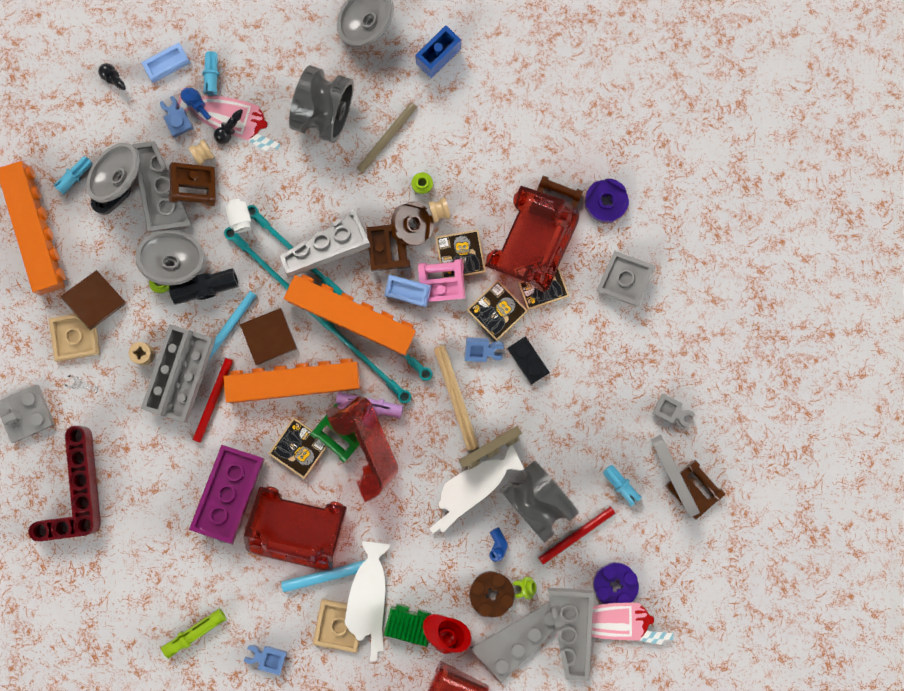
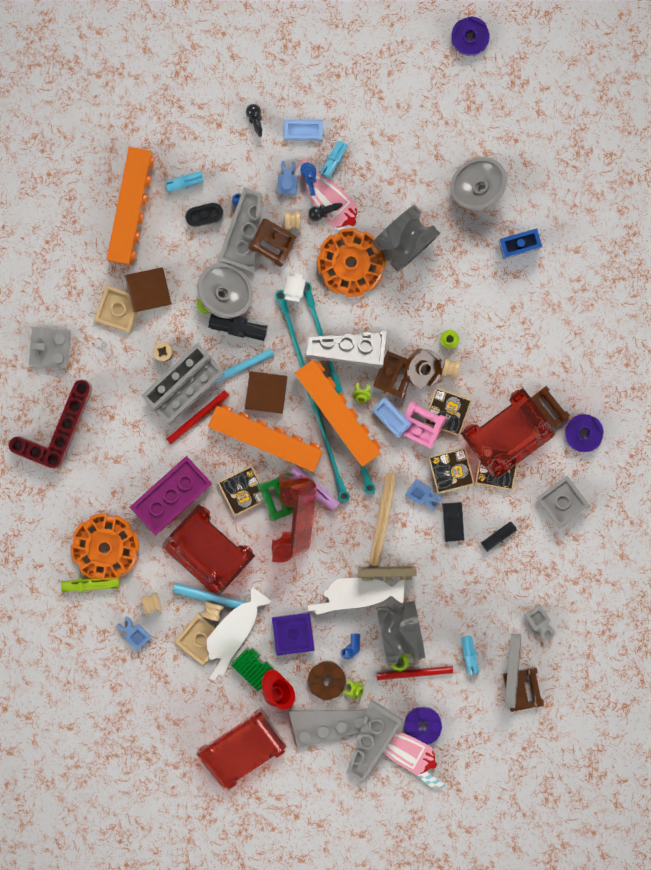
camera: 25 degrees right, 5 degrees up
(113, 172) = (217, 202): light grey dish -> none
(174, 586) = (115, 542): none -> orange plate
(267, 617) = (151, 603): none -> tan wheel
(287, 174) = (345, 273): none -> orange plate
(335, 589) = (212, 611): none -> tan wheel
(366, 285) = (361, 395): none -> lime plate
(386, 137) = (442, 287): dark tan bar -> none
(430, 565) = (293, 633): none -> dark purple plate
(561, 533) = (399, 667): none -> lime plate
(581, 349) = (498, 536): none -> black axle

